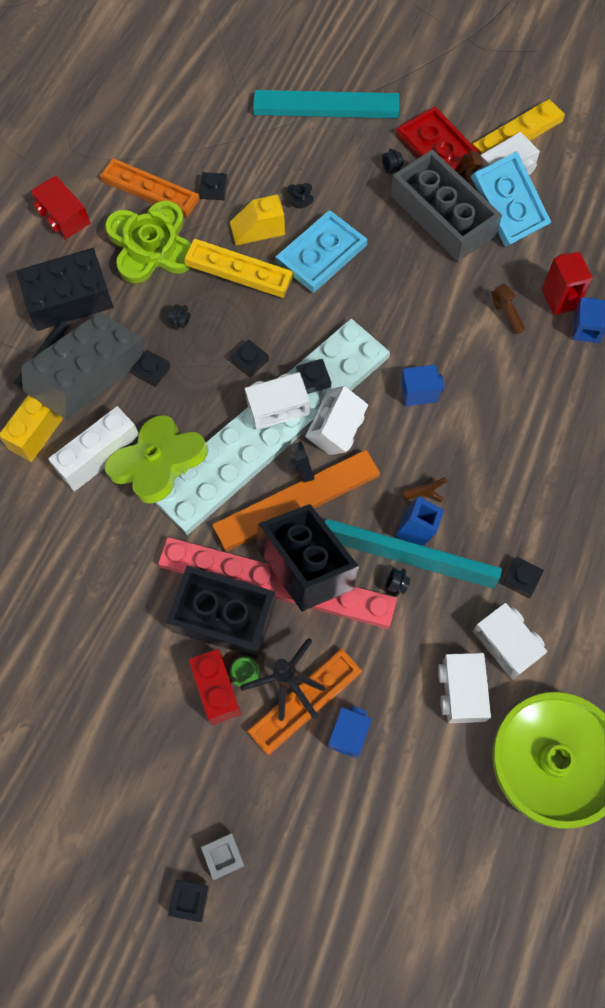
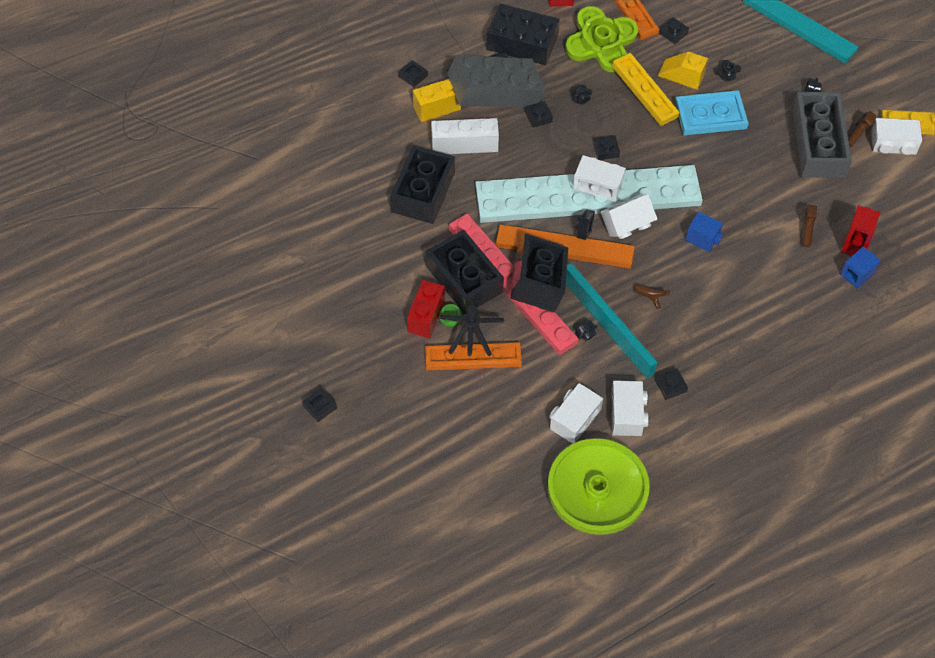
camera: 35 degrees right, 10 degrees down
(95, 539) = (422, 184): none -> black brick
(156, 459) = (495, 165): lime plant -> none
(223, 856) = (356, 397): light grey plate -> none
(314, 376) = (636, 180): black plate -> none
(350, 731) = (484, 387): blue brick -> none
(419, 522) = (629, 304): blue brick -> none
(435, 132) = (858, 92): red tile -> none
(514, 196) = (872, 158): medium azure plate -> none

